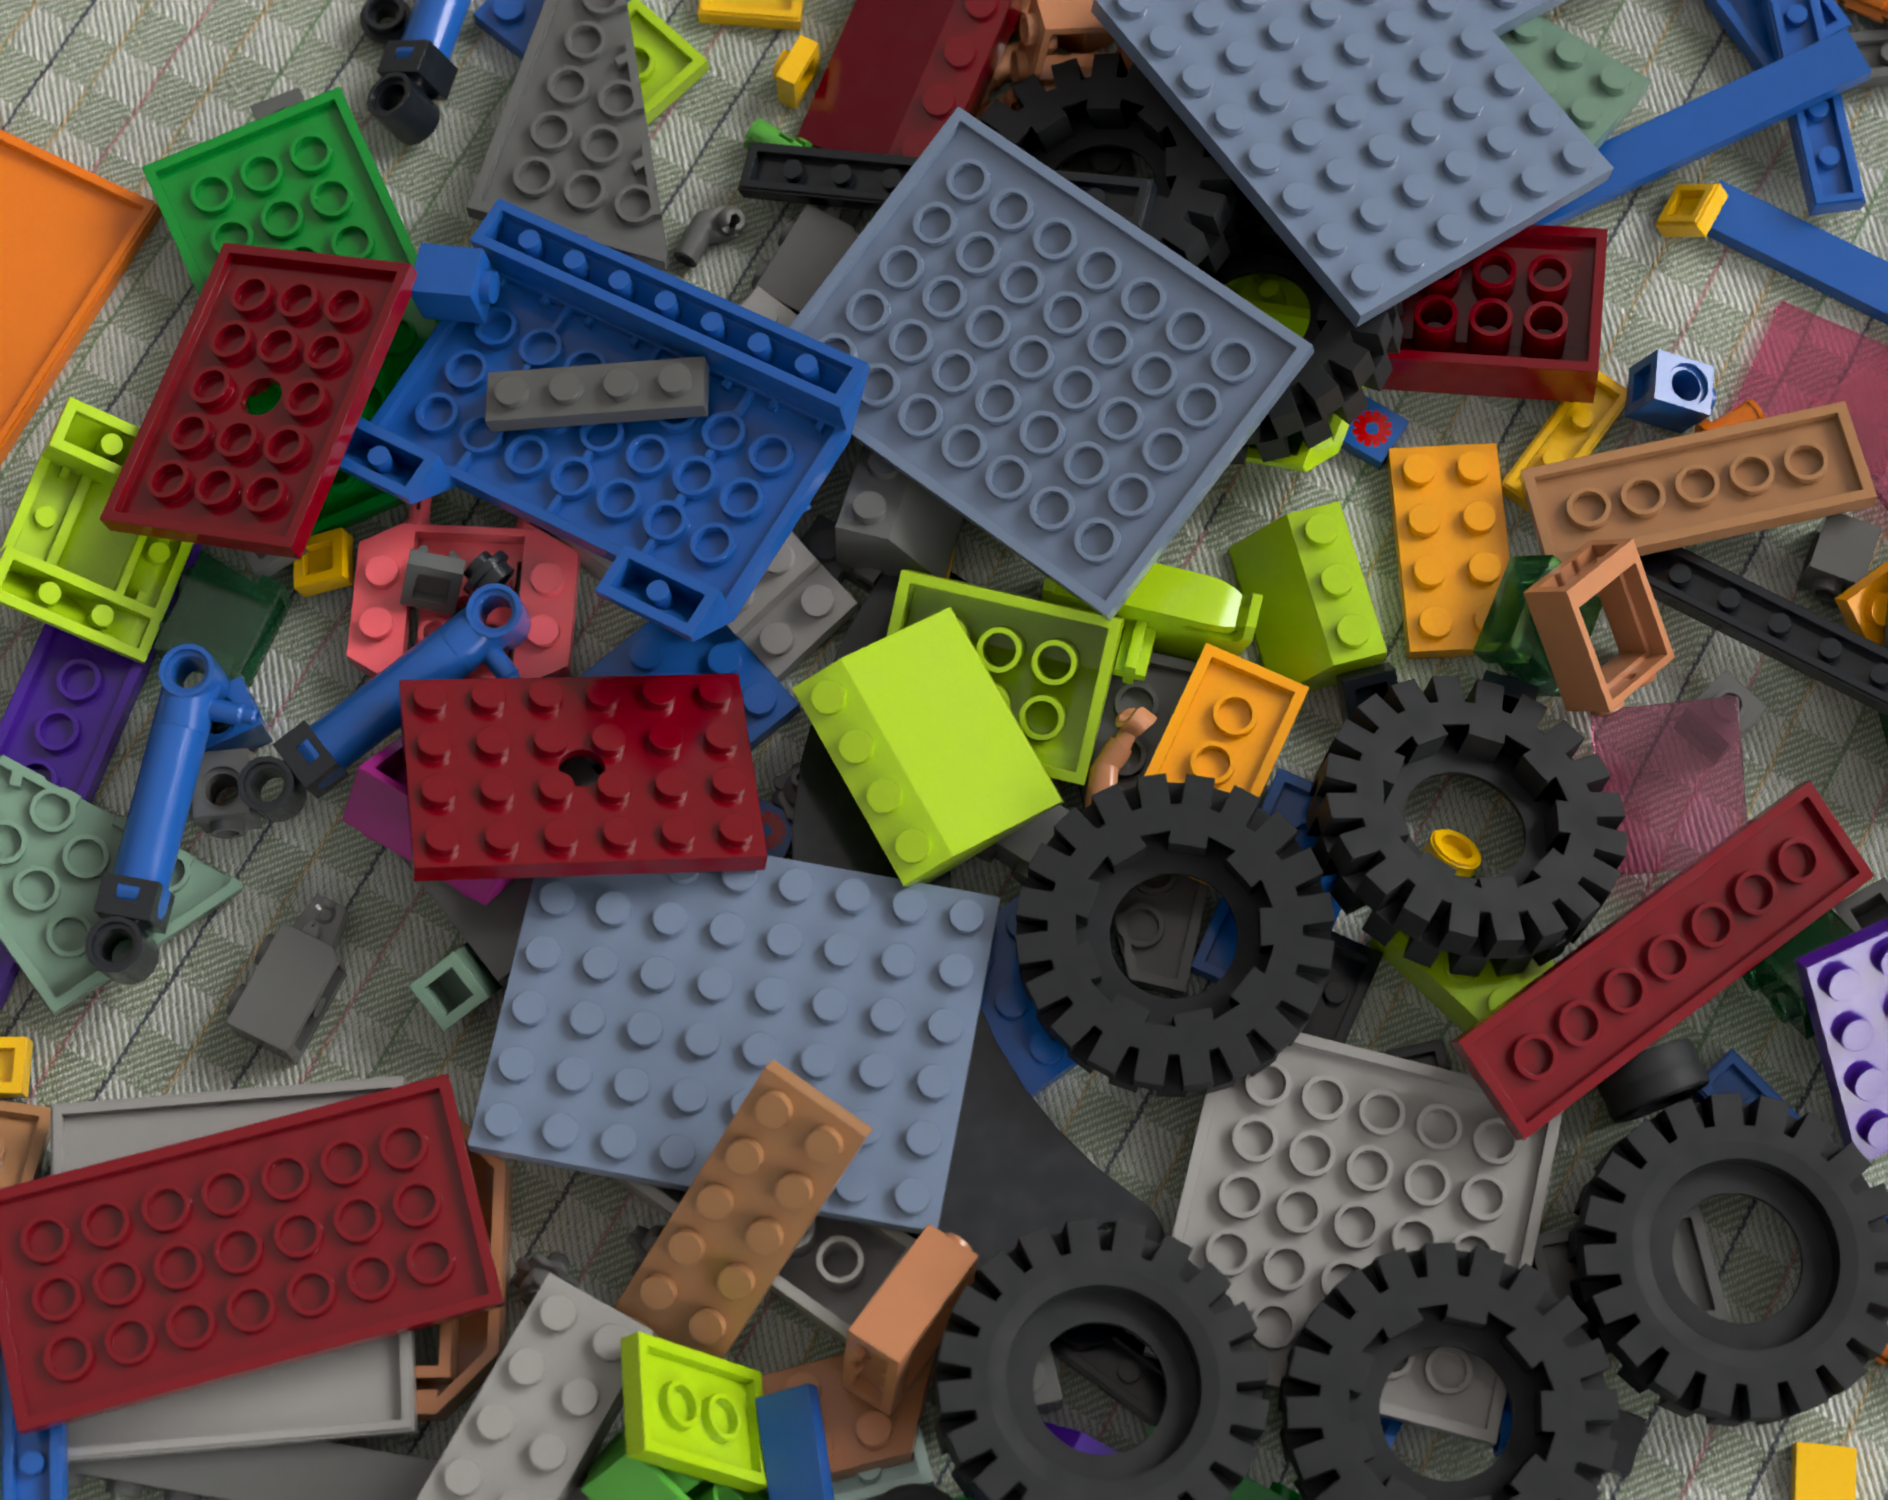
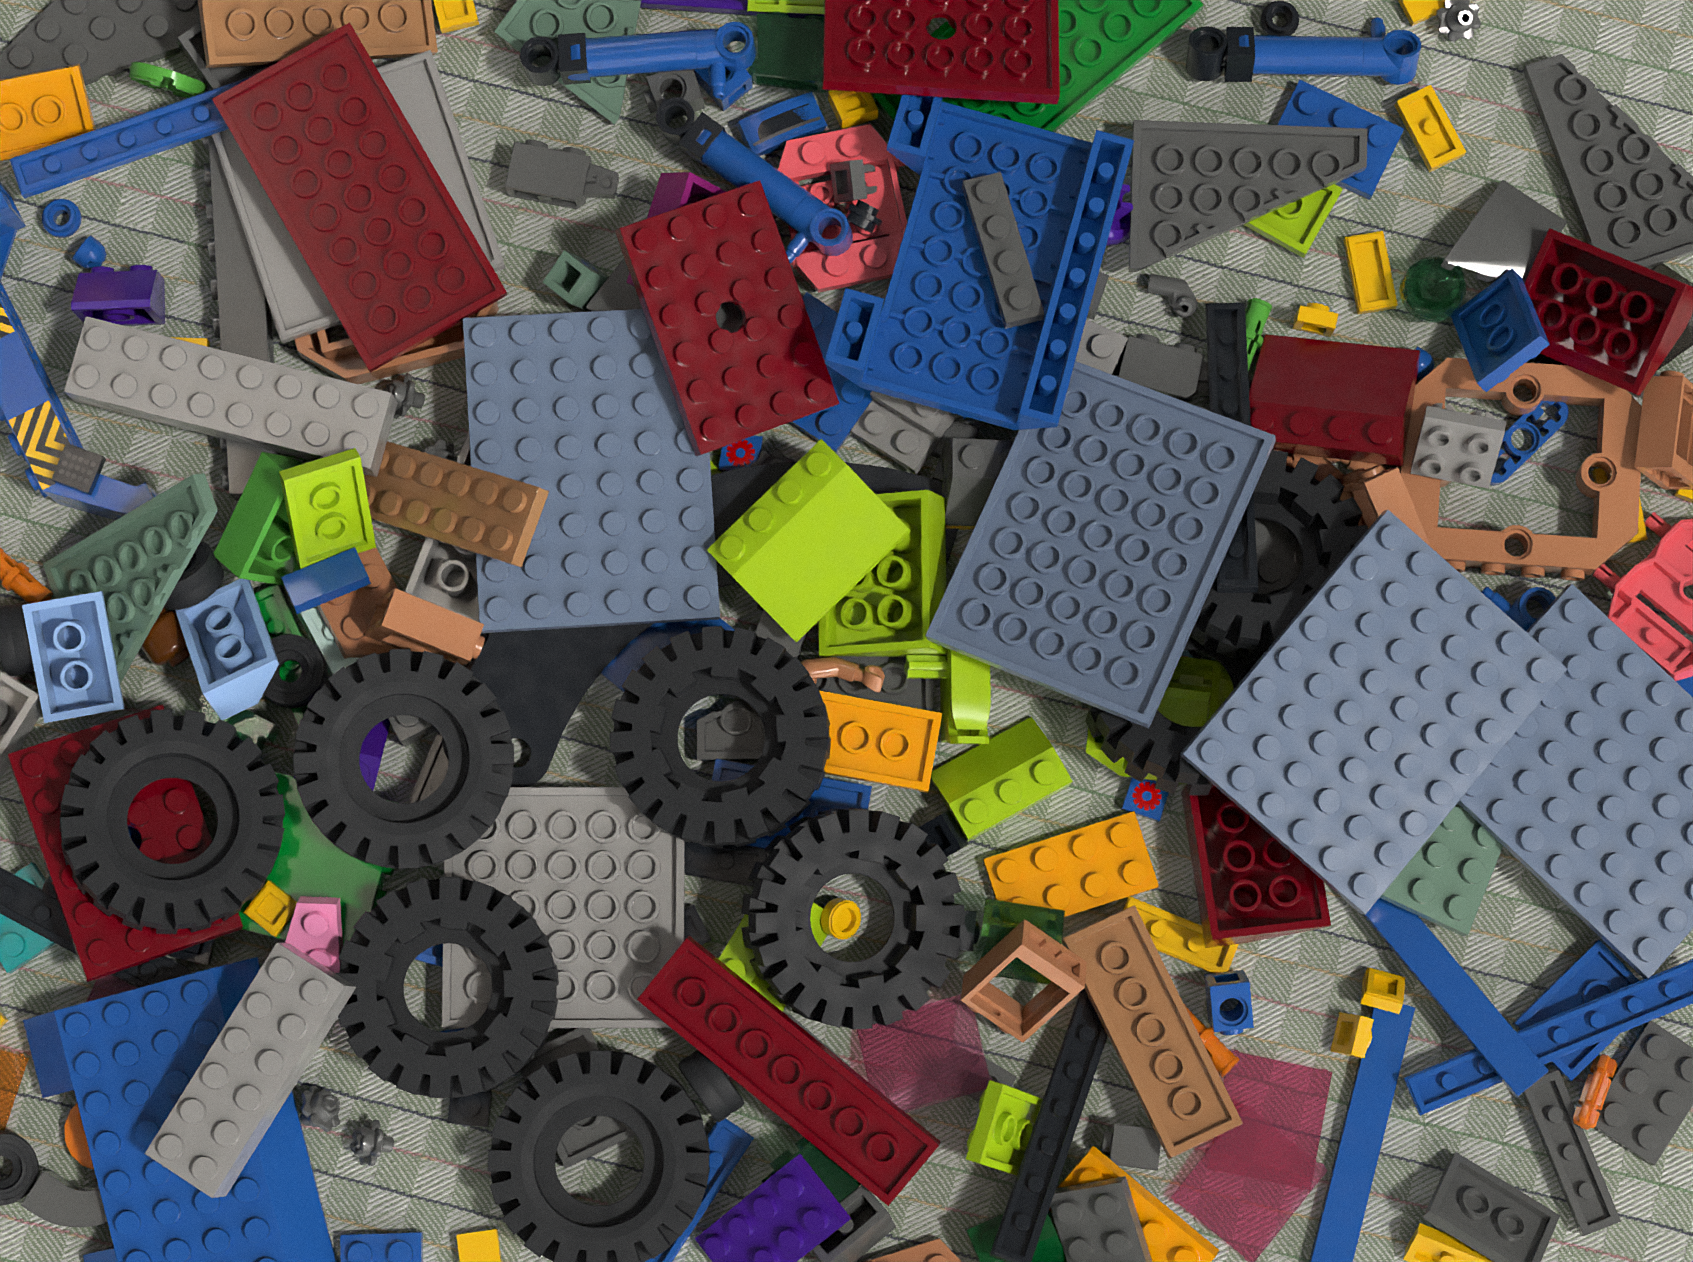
camera: 75 degrees right, 10 degrees up
(318, 660) = (782, 122): none -> blue slope
(454, 283) = (1063, 129): blue brick -> none
(1742, 259) = (1352, 1035): none -> yellow plate
(1820, 707) = (1002, 1127): none -> lime plate

